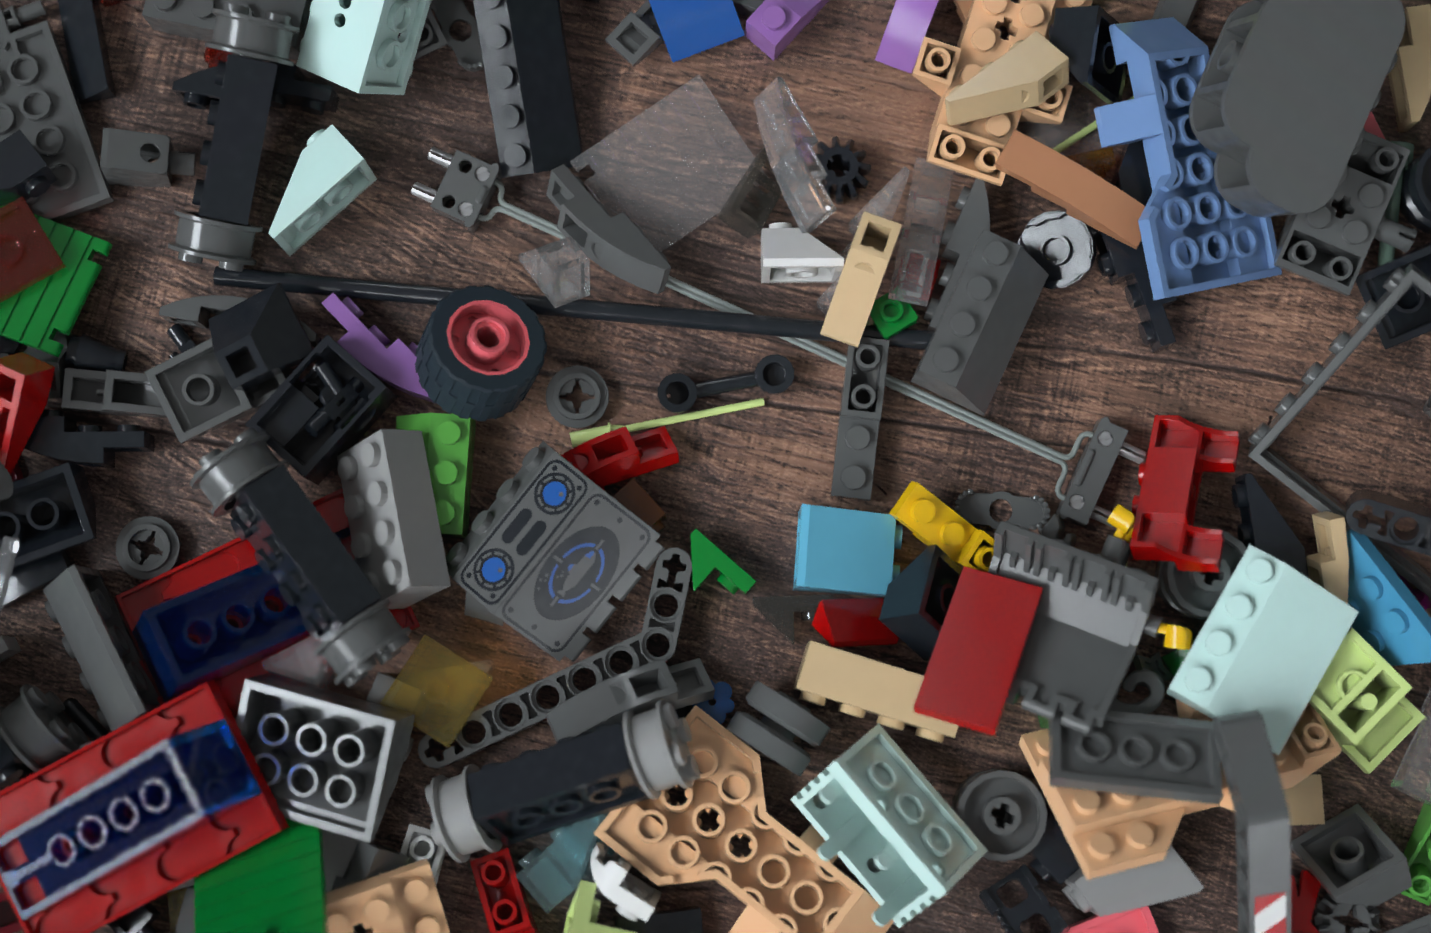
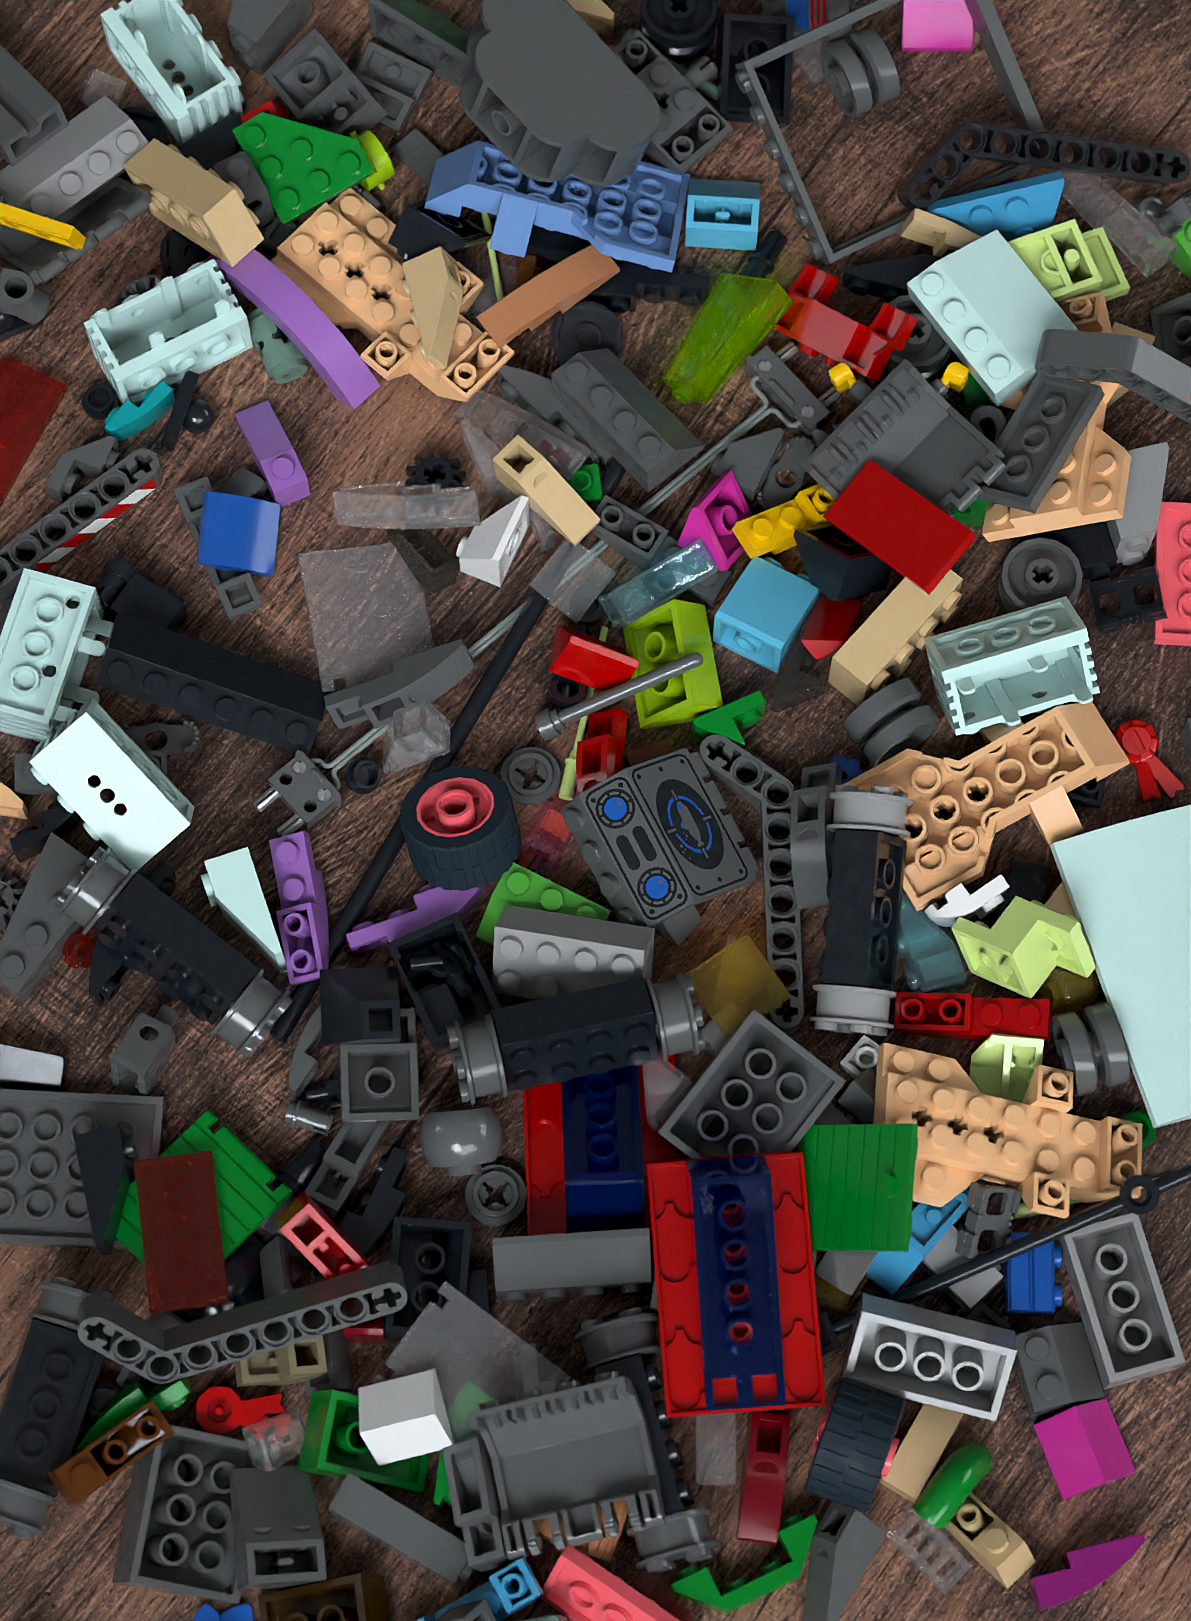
camera: 65 degrees left, 10 degrees down
(149, 340) = (309, 1118): none -> dark grey pin
(166, 491) = (461, 1138): none -> dark grey wheel
(338, 247) = (303, 906): none -> medium lavender slope
(506, 237) = (362, 775): none -> black plate
(511, 439) = (546, 842): none -> clear pink slope
(639, 393) = (551, 721): none -> dark grey piece
(717, 402) = (590, 660): none -> red slope
(750, 484) = (664, 637): none -> lime slope
(788, 347) = (572, 579): none -> clear piece
(819, 433) = (657, 584): none -> clear light blue slope
(909, 457) = (714, 519): none -> dark pink slope
(994, 466) = (750, 461): none -> dark grey slope
(1119, 383) = (724, 334): none -> clear neon green slope
(1219, 387) = (763, 260): none -> black axle
(1254, 324) = (722, 214): none -> medium azure slope

